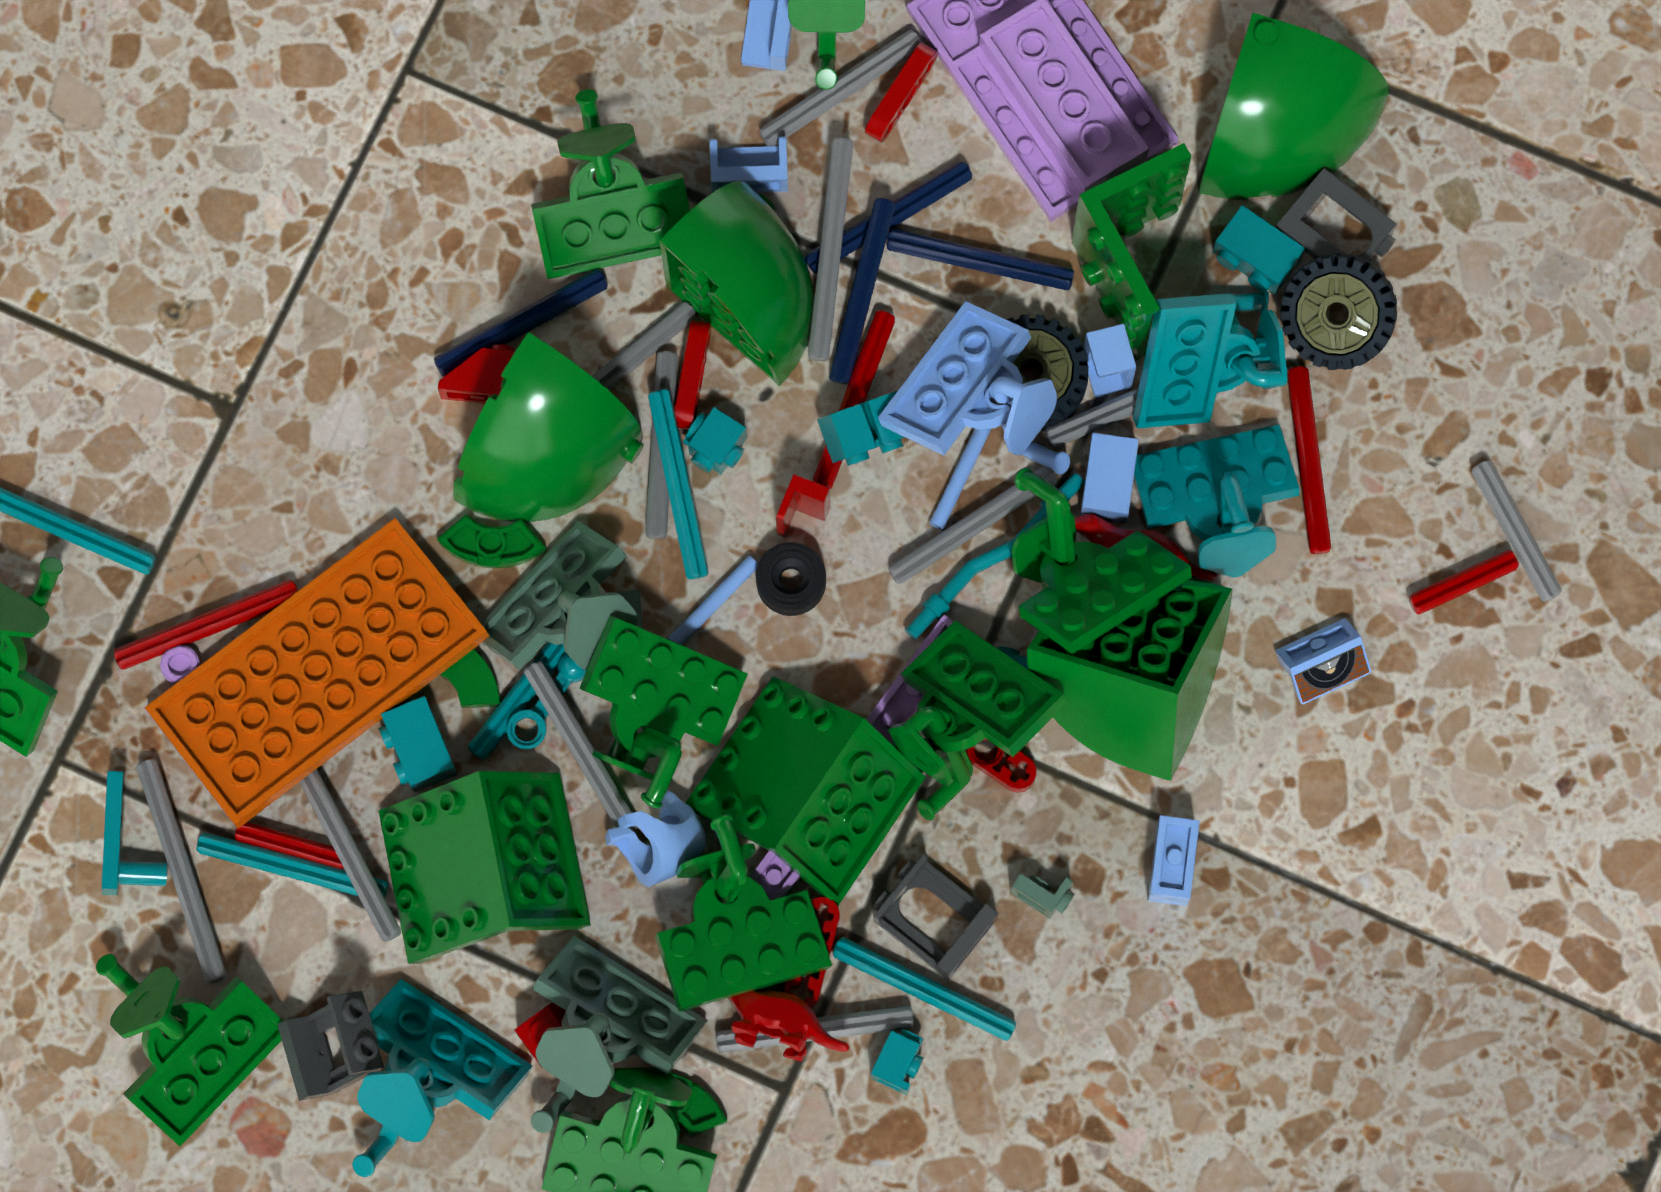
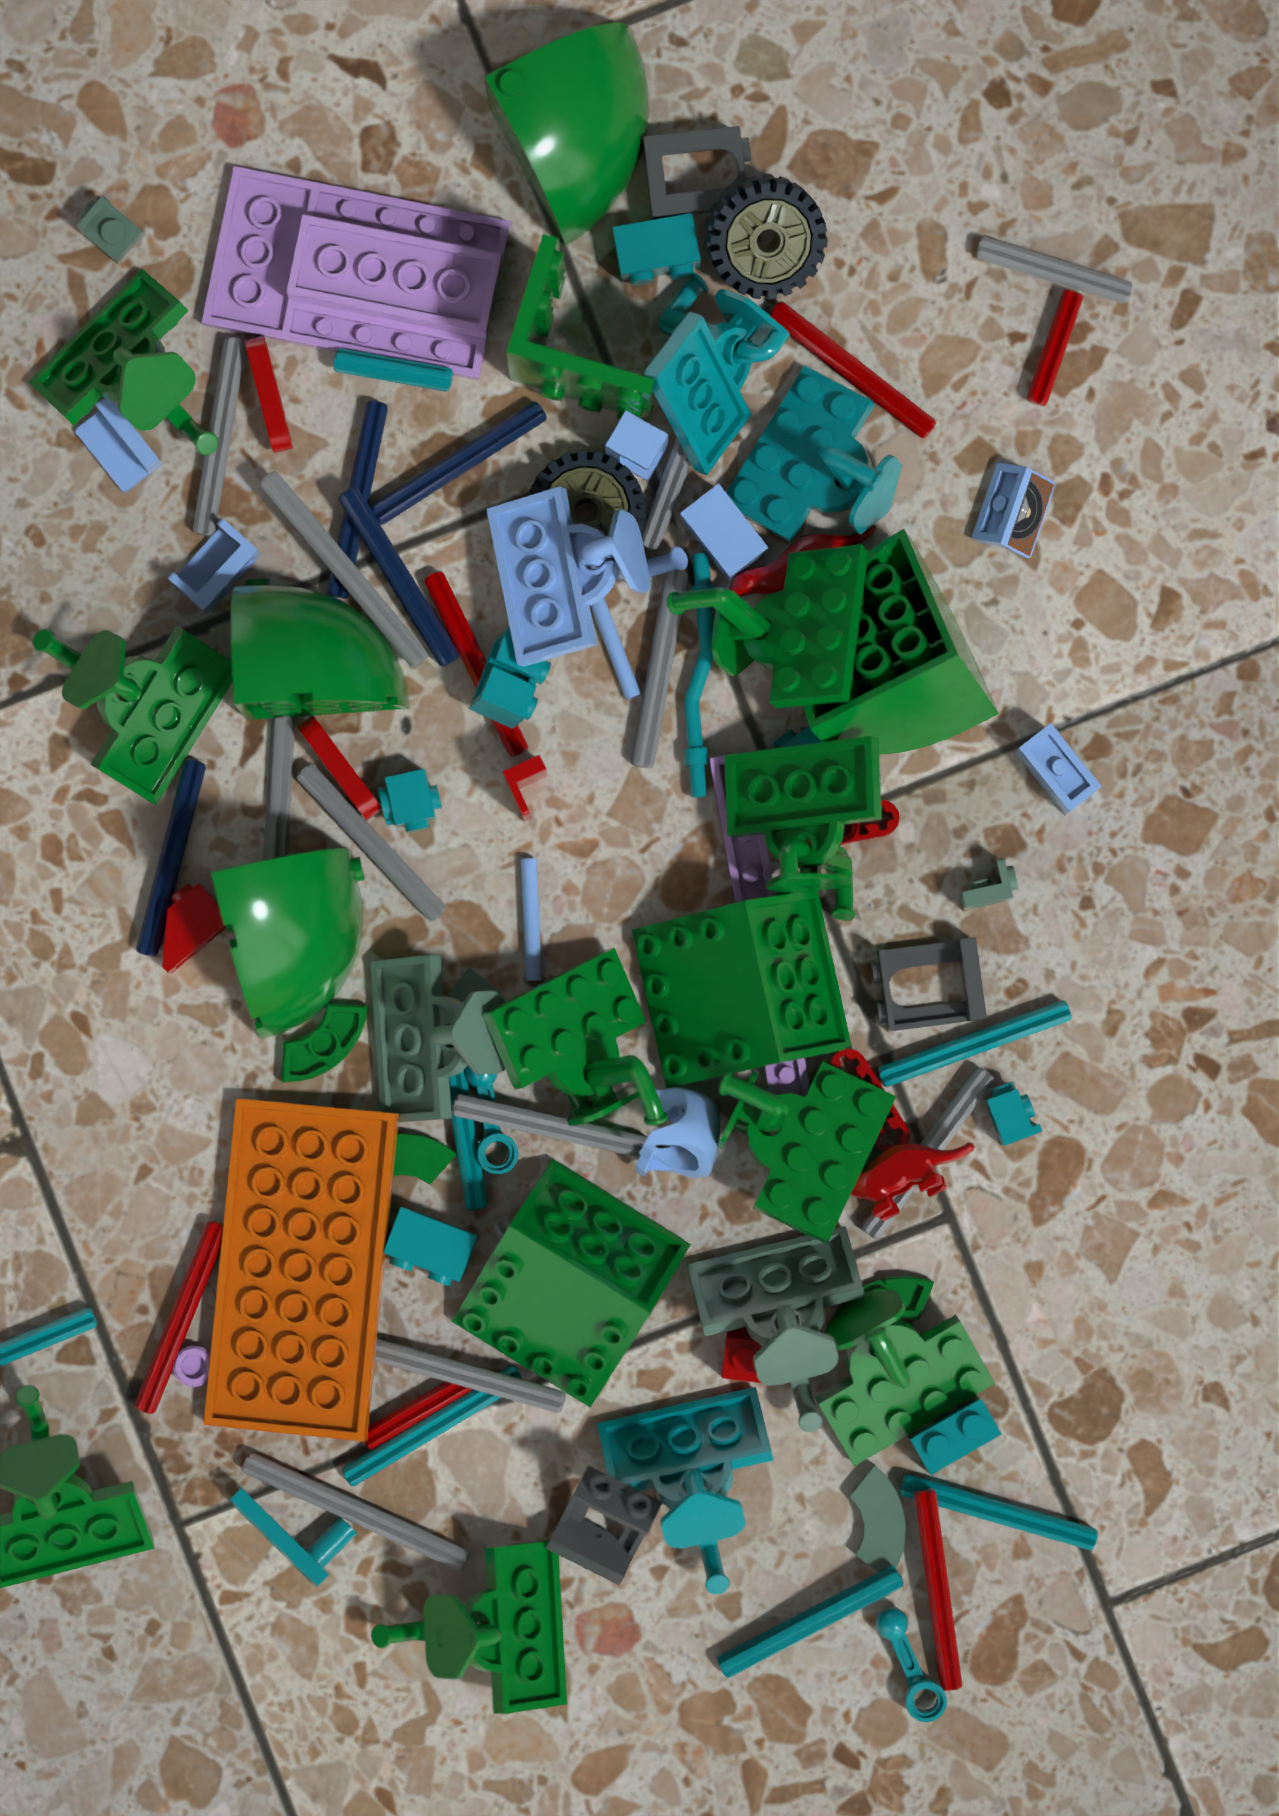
camera: 50 degrees left, 10 degrees up
(678, 484) = (416, 860): teal axle -> none
(796, 557) = (570, 822): black tyre -> none
(999, 156) = (393, 370): none -> teal axle

